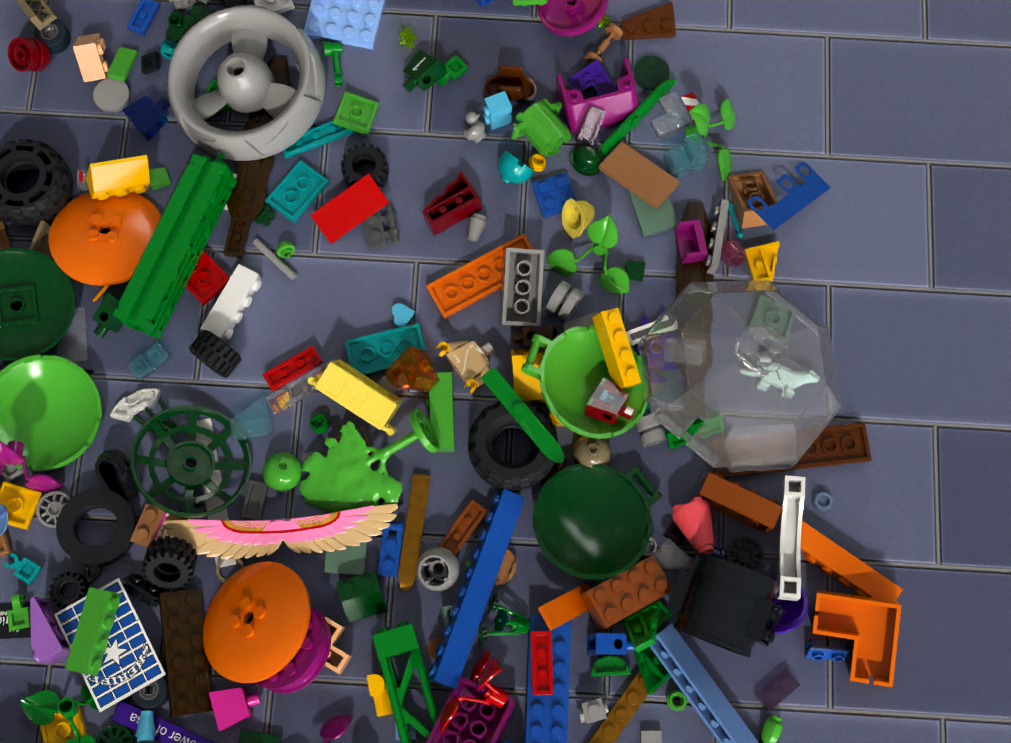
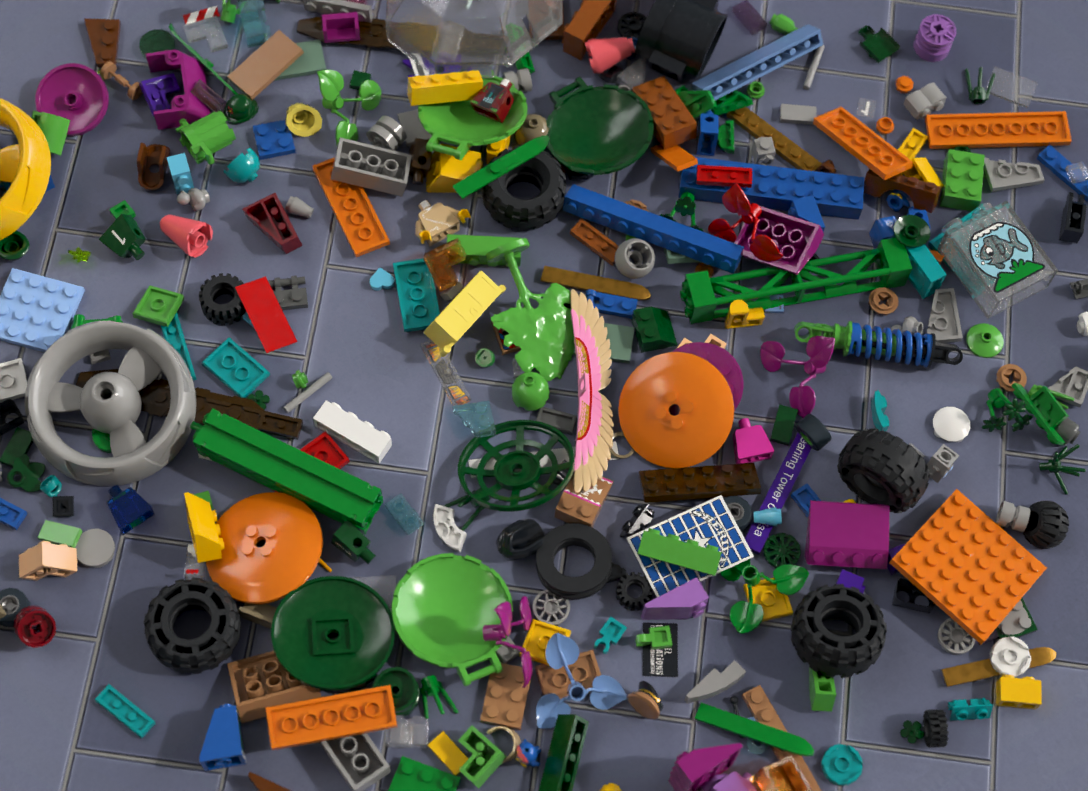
camera: 90 degrees left, 10 degrees down
(169, 562) = (616, 486): black tyre -> none
(215, 353) = (407, 440): black tyre -> none
(292, 368) = (426, 379): red plate -> none
(432, 127) = (187, 234): none -> coral cone
(537, 162) = (238, 148): yellow plate -> none

